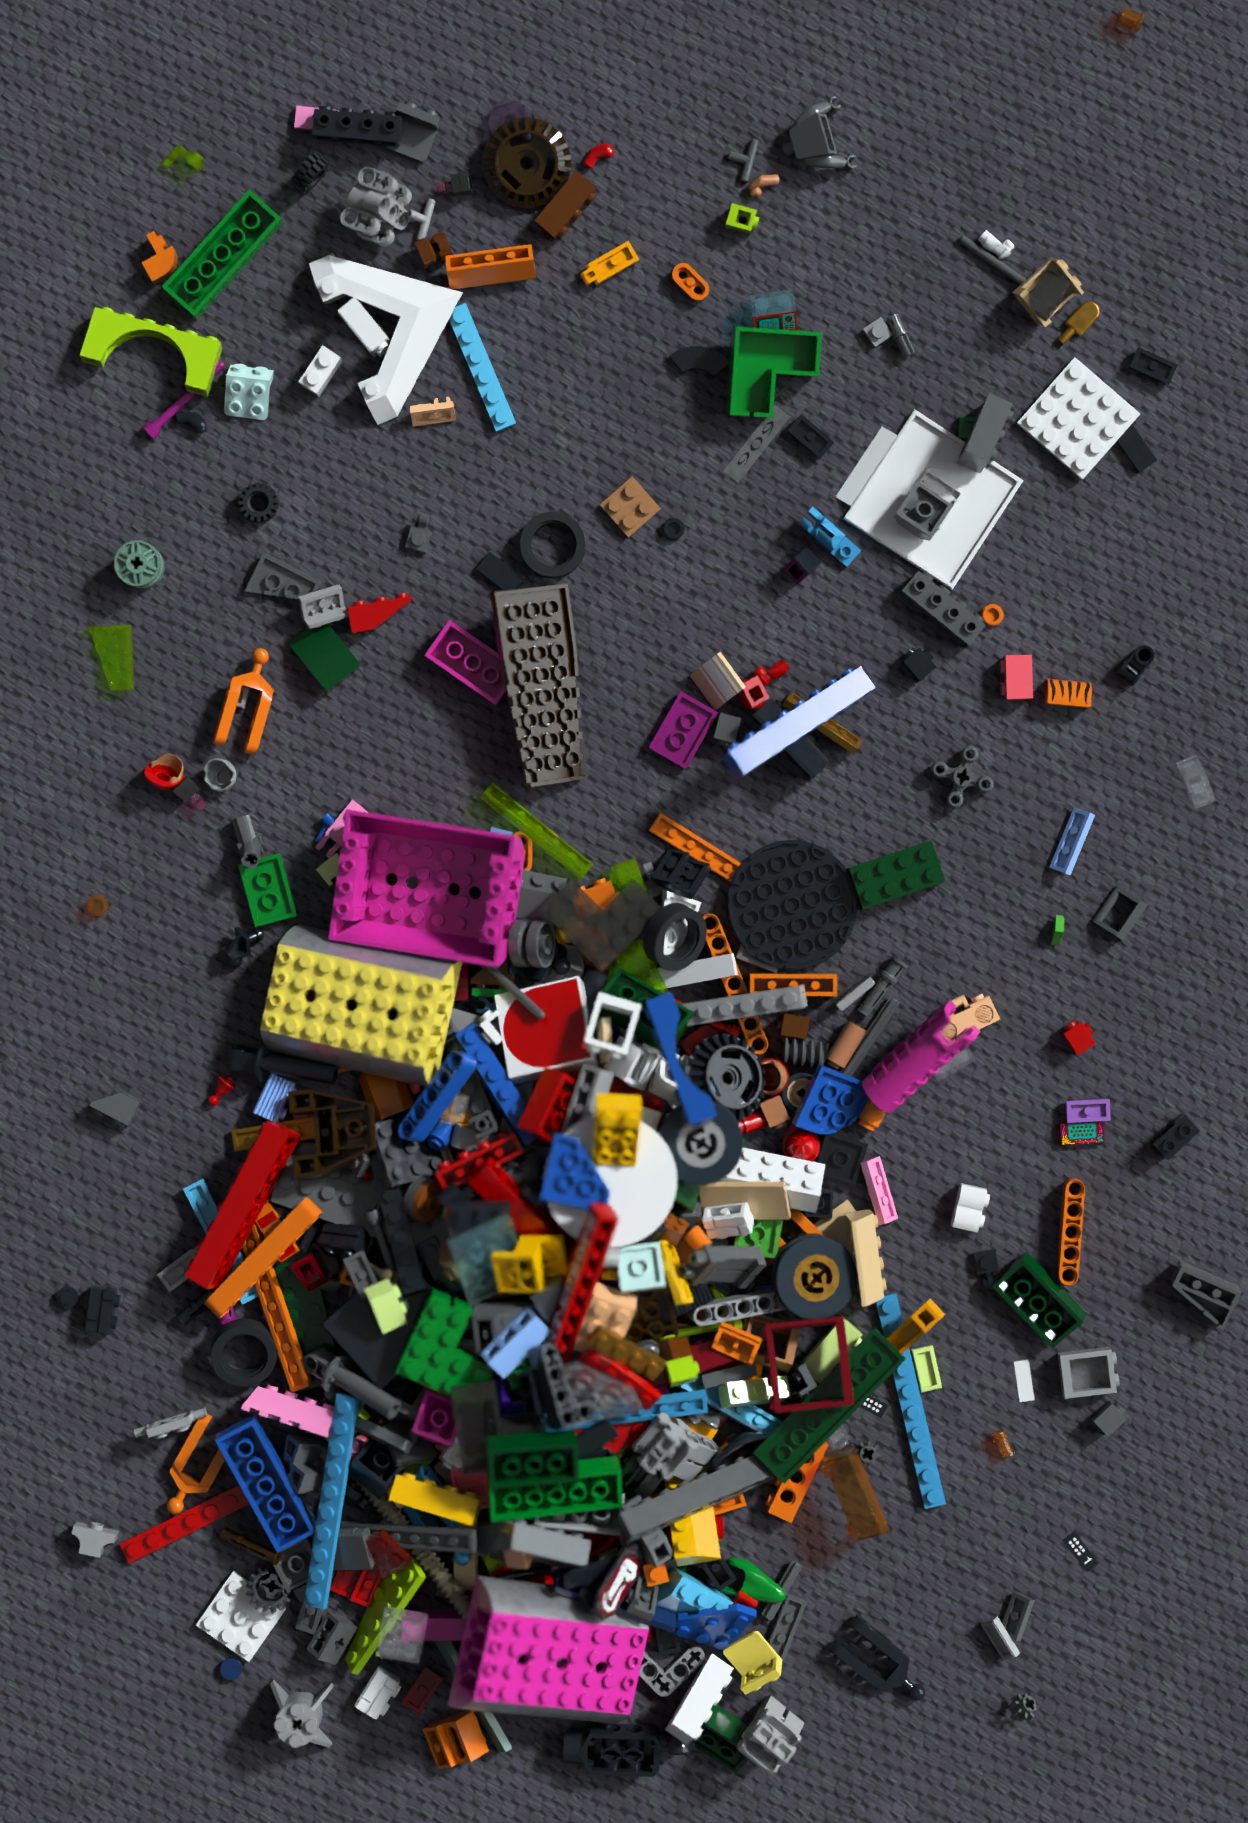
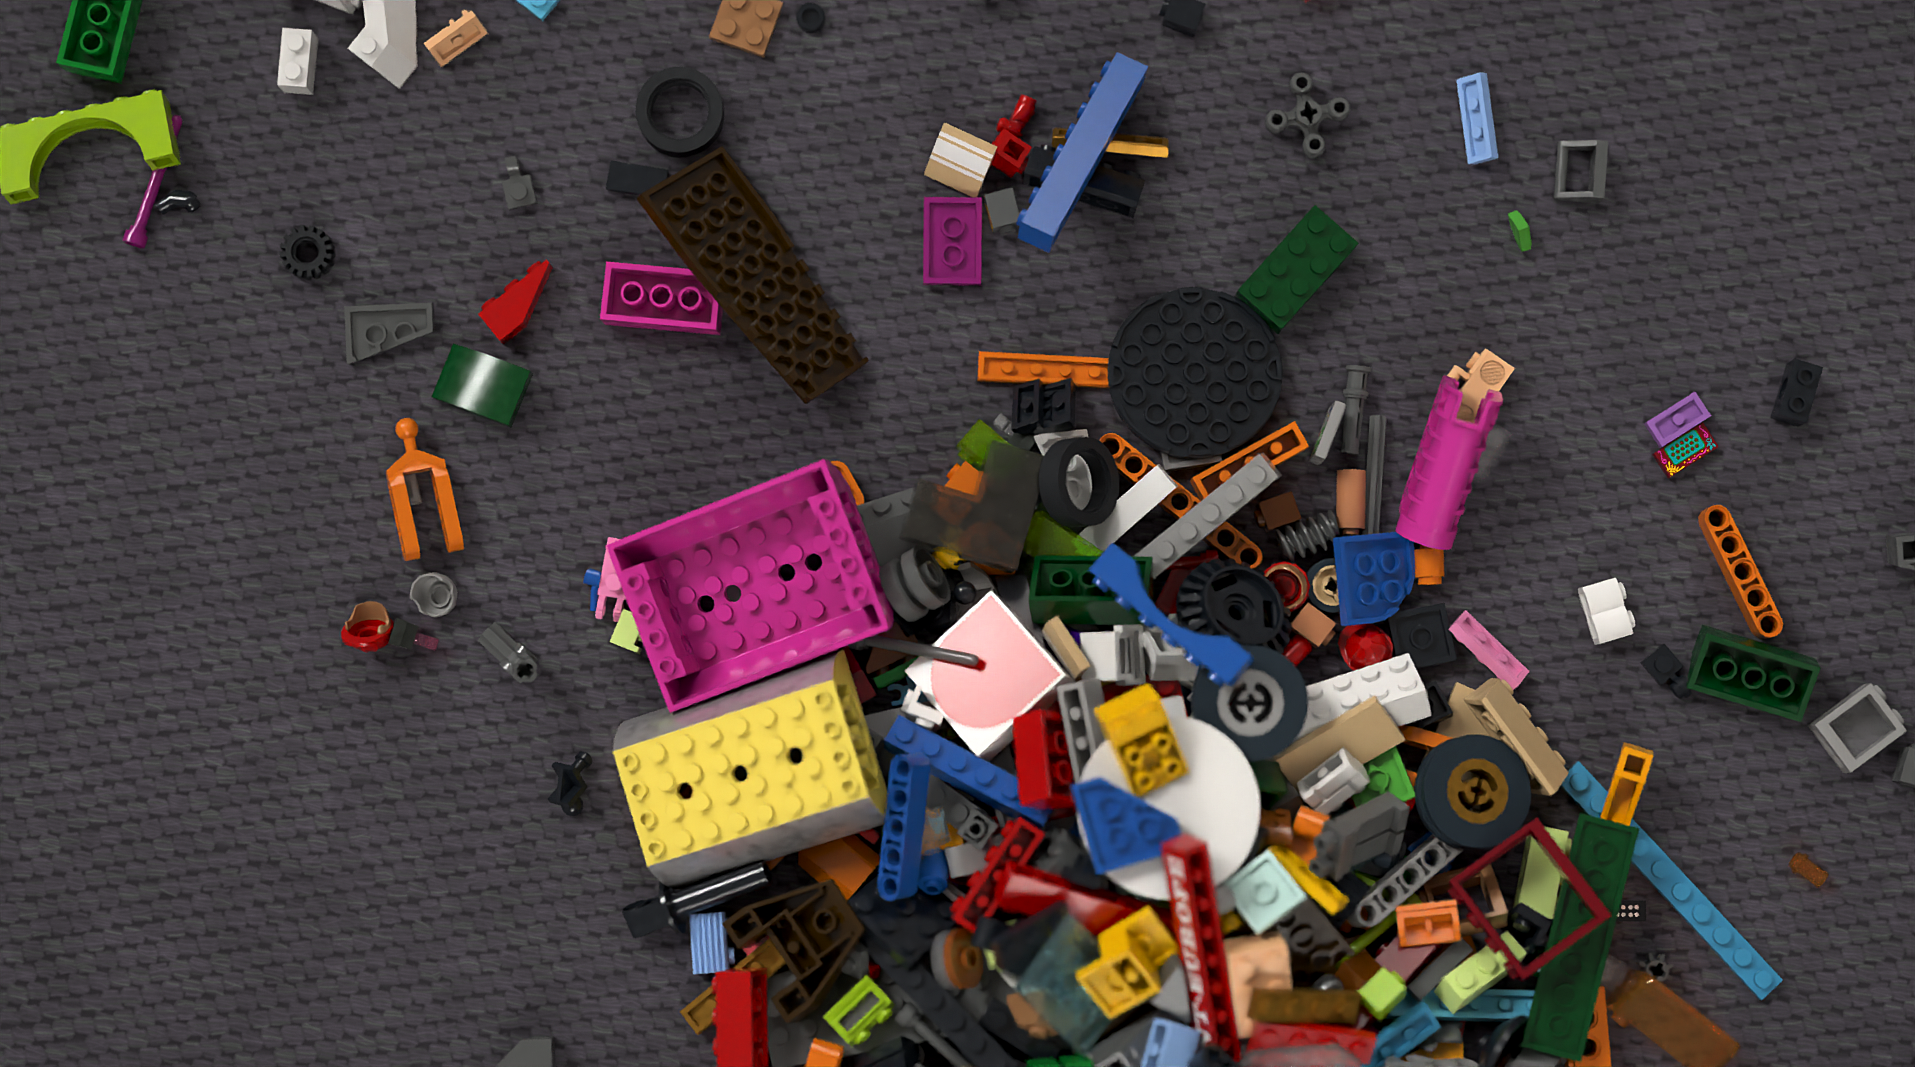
camera: 30 degrees left, 5 degrees down
(97, 905) = (373, 831): clear orange plate -> none
(116, 652) = (234, 521): clear neon green wing -> none
(146, 575) = (219, 407): sand green wheel -> none
(163, 263) = (44, 37): orange brick -> none
(223, 1087) = (641, 965): red piece -> none
(247, 391) = (225, 132): light aqua bracket -> none
(268, 891) = (567, 700): green plate -> none
(323, 606) = (449, 329): light grey bracket -> none
(345, 1196) = (859, 1012): none -> lime window
(536, 831) = (846, 452): clear neon green tile -> none
(618, 1005) = (1058, 595): white window -> none
(926, 1368) = (1665, 831): yellowish green tile -> none
(1024, 1380) = (1788, 781): white sticker -> none
(1078, 1036) = (1616, 339): red brick -> none

